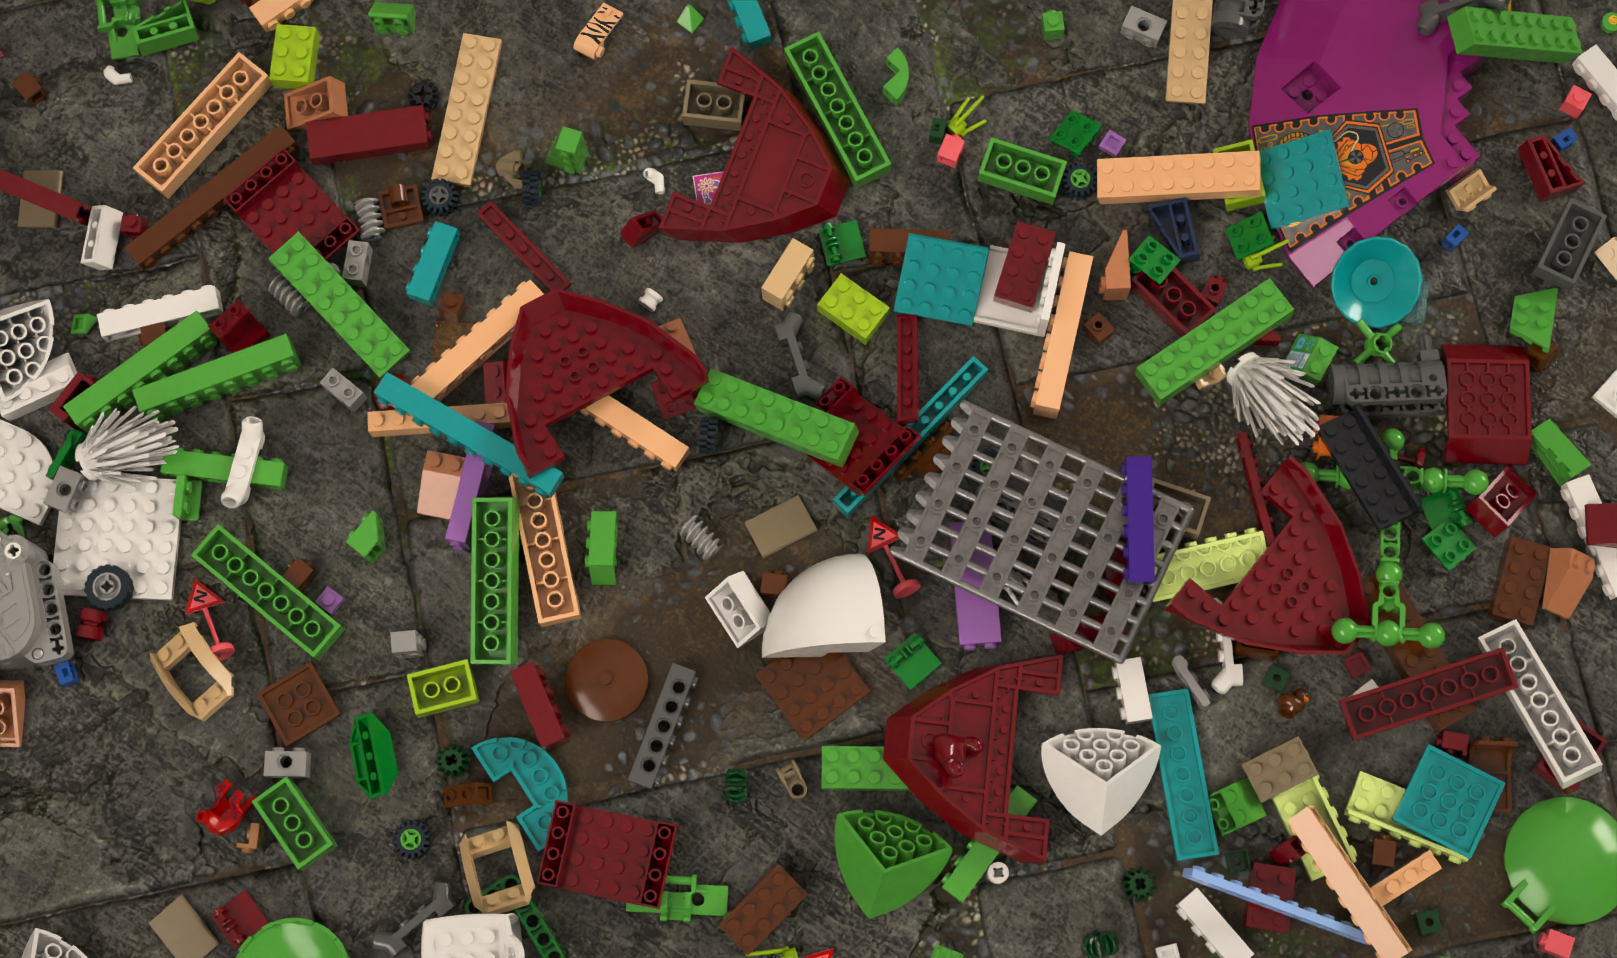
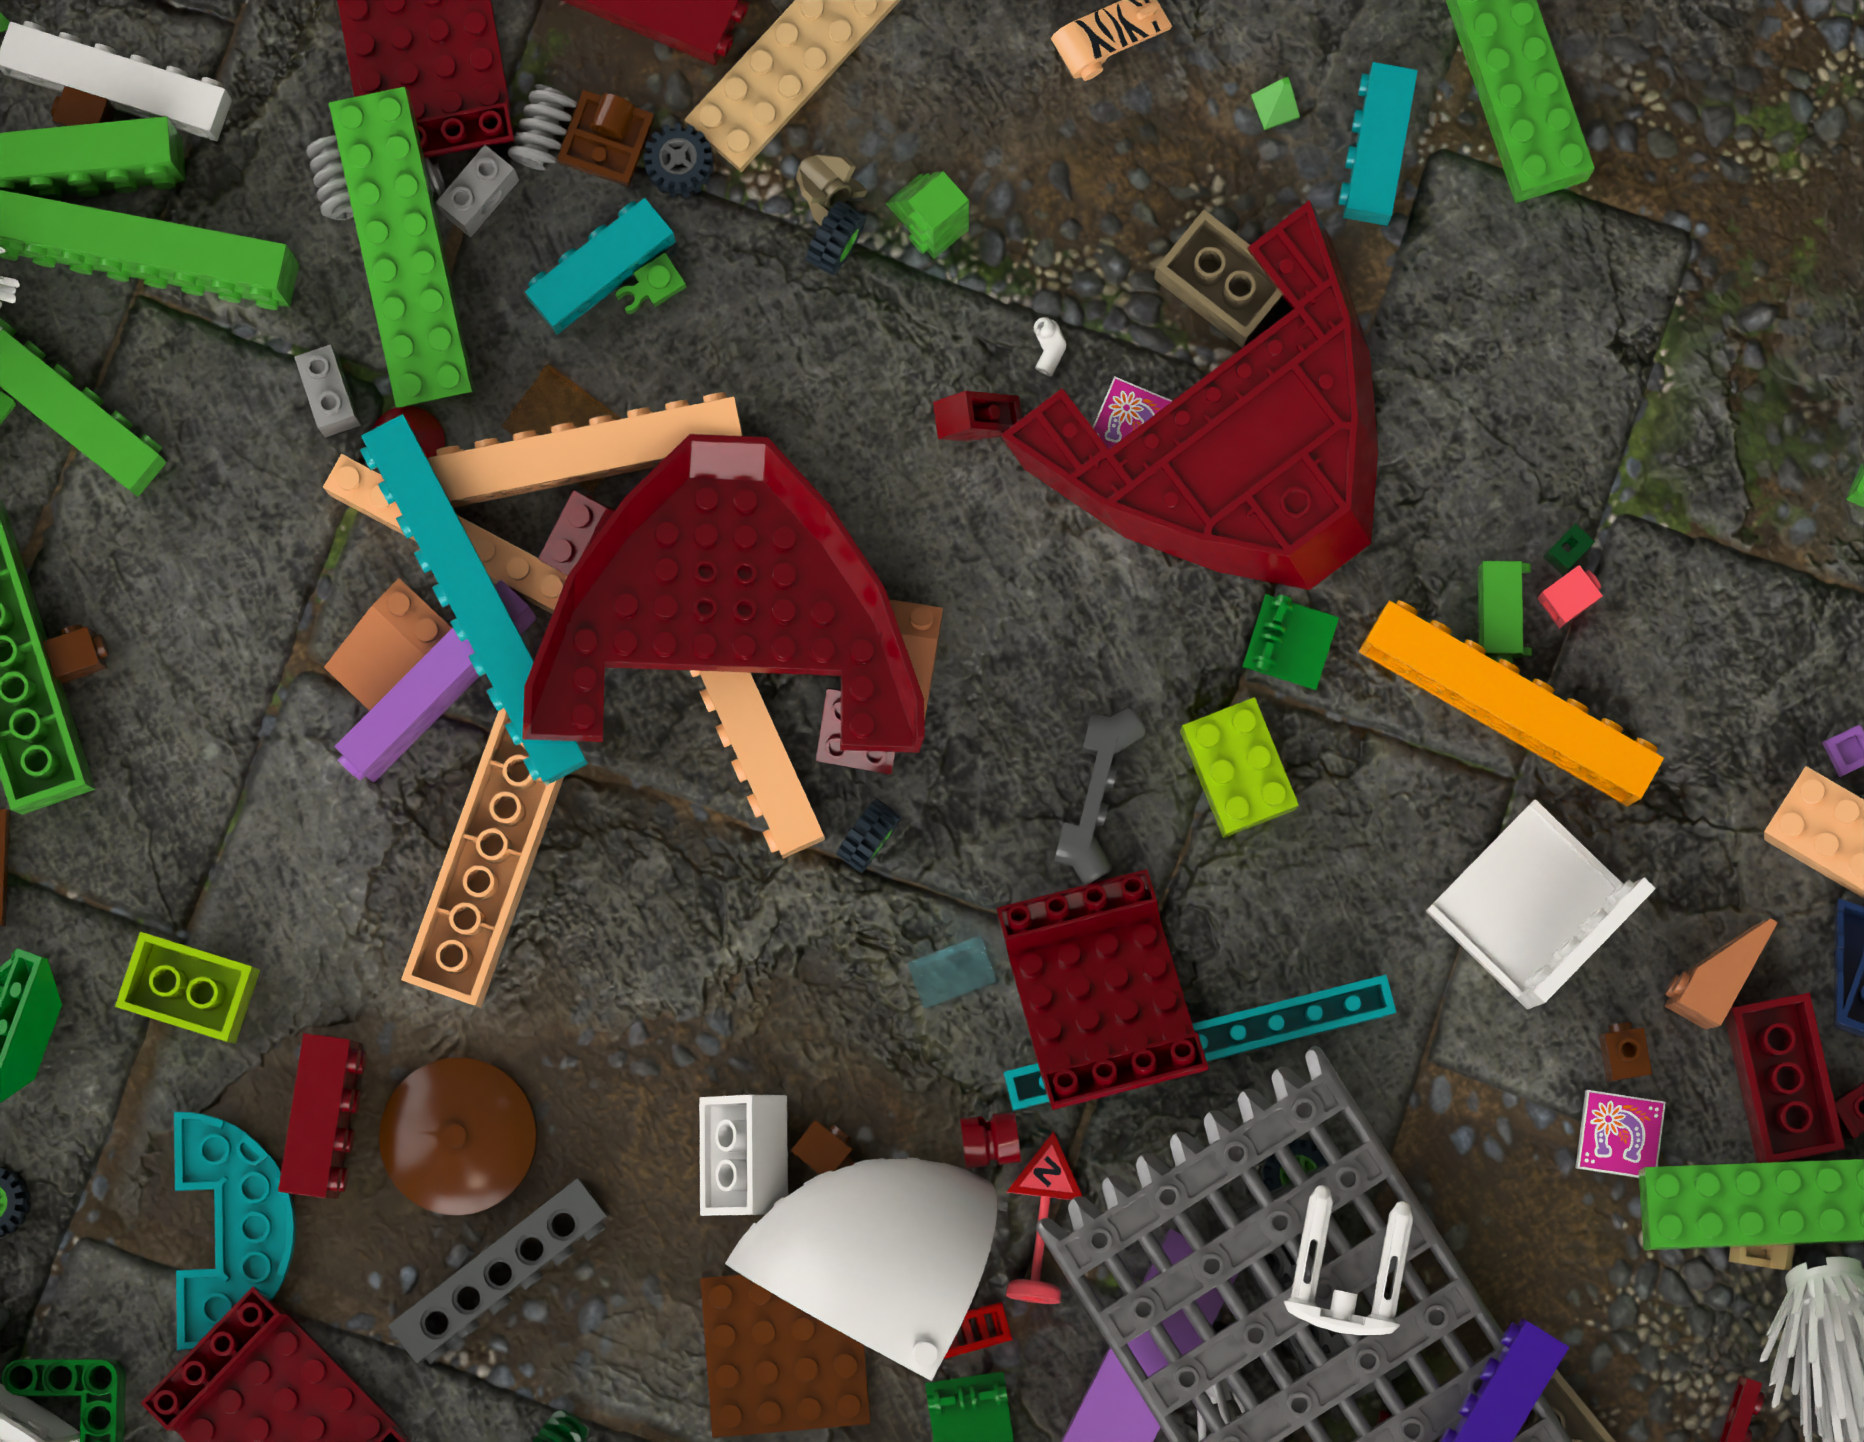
camera: 30 degrees right, 5 degrees up
(238, 328) = (219, 188): dark red panel -> none
(244, 462) = (63, 448): white plate -> none
(329, 600) = (99, 726): medium lavender plate -> none
(368, 537) = (219, 666): bright green slope -> none
(407, 644) = (174, 880): light grey brick -> none
(451, 753) = (133, 1099): dark green gear -> none
(452, 307) = (586, 359): reddish brown brick -> none
(461, 256) = (656, 281): none -> bright green plate
(468, 794) = (123, 1186): reddish brown bracket -> none
(489, 843) = (109, 1286): tan wedge -> none
(494, 580) = (373, 865): bright green brick -> none
(522, 247) = (762, 330): dark red plate -> none
(602, 547) = (583, 912): bright green wedge -> none
(650, 300) = (915, 545): white wheel -> none
(700, 538) = (750, 997): light grey piece -> none
(777, 418) = (997, 879): bright green brick -> none
(780, 526) = (895, 1057): dark tan piece -> none
(782, 473) = (951, 972): none -> clear light blue panel
(788, 275) = (1166, 645): tan brick -> none
(837, 110) = (1423, 412): bright green brick -> none
(846, 534) = (990, 1140): none -> dark red wheel
(889, 245) = (1396, 722): reddish brown brick -> none
(897, 86) = (1549, 431): bright green brick -> none
(898, 624) = (1000, 1325): none -> red slope
(907, 369) = (1264, 927): dark red plate -> none
(922, 458) = (1211, 1089): reddish brown bracket -> none
(925, 174) = (1501, 609): none -> bright green brick
(940, 279) = (1413, 810): teal plate -> none
(954, 210) = (1511, 704): none -> light orange brick
(957, 124) = (1607, 561): lime plant -> none
(1022, 171) = (1667, 706): bright green brick -> none
(1024, 266) = (1567, 874): dark red brick -> none
(1045, 506) = (1341, 1313): none -> white piece
(1063, 331) = (1557, 1030): light nougat brick -> none
(1075, 133) = (1798, 694): green hinge -> none
(1081, 174) = (1766, 774): black wheel -> none
(1117, 365) = (1619, 1133): none -> tile
(1153, 260) = (1790, 1000): green hinge -> none

